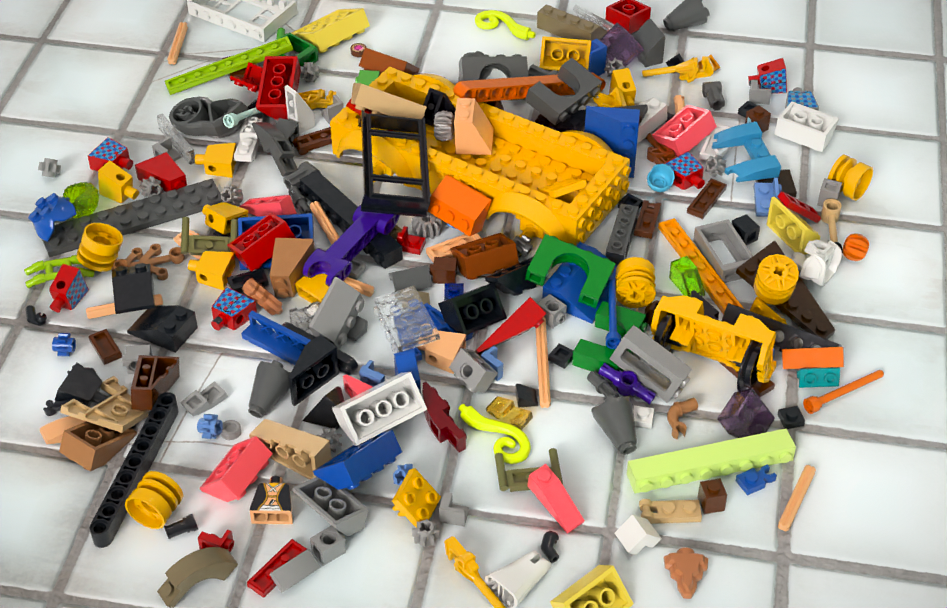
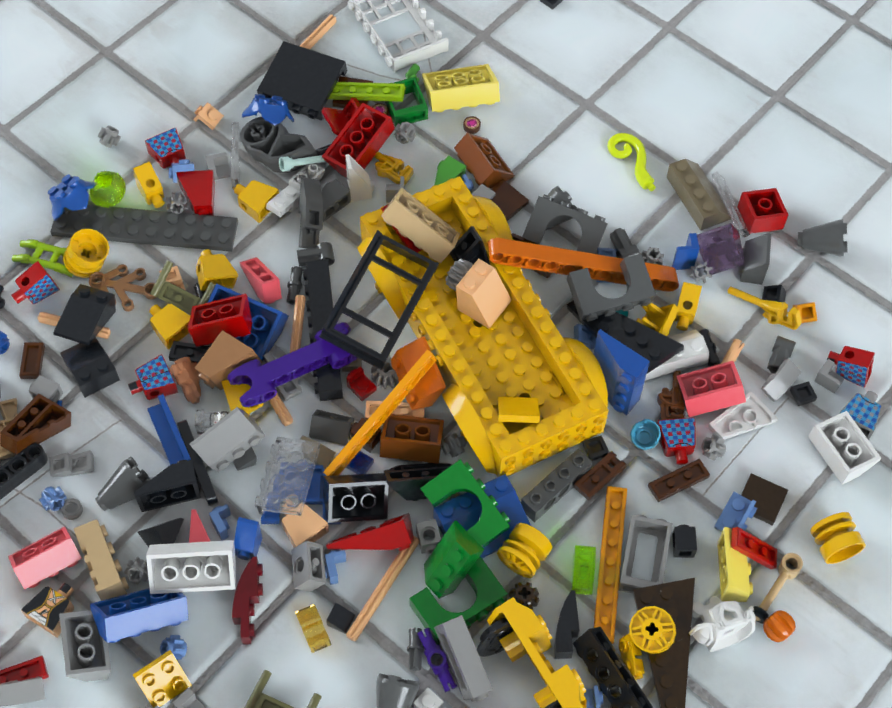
camera: 30 degrees right, 15 degrees up
(128, 122) = (208, 115): none -> light nougat bracket
(131, 164) = (183, 166): none -> medium blue bracket
(182, 90) = (271, 109): none -> blue brick
(193, 69) = (302, 79): none -> black panel
(232, 195) = (238, 248): light grey gear -> none
(312, 140) = (353, 217): reddish brown plate -> none
(328, 545) = (55, 678): light grey brick -> none
(453, 240) = (381, 414): none -> light orange tile
(479, 422) = (277, 621): neon yellow plant -> none
(559, 50) = (662, 228): yellow slope -> none
(561, 356) = (402, 592): black plate -> none
(585, 309) = (451, 560): none -> green slope
(613, 337) = (451, 607): blue piece -> none
(728, 109) = (781, 381): none -> light grey slope
(759, 115) = (800, 412): reddish brown brick -> none
(762, 163) = (763, 473): dark azure wedge -> none
(829, 190) = (803, 544): light grey brick -> none

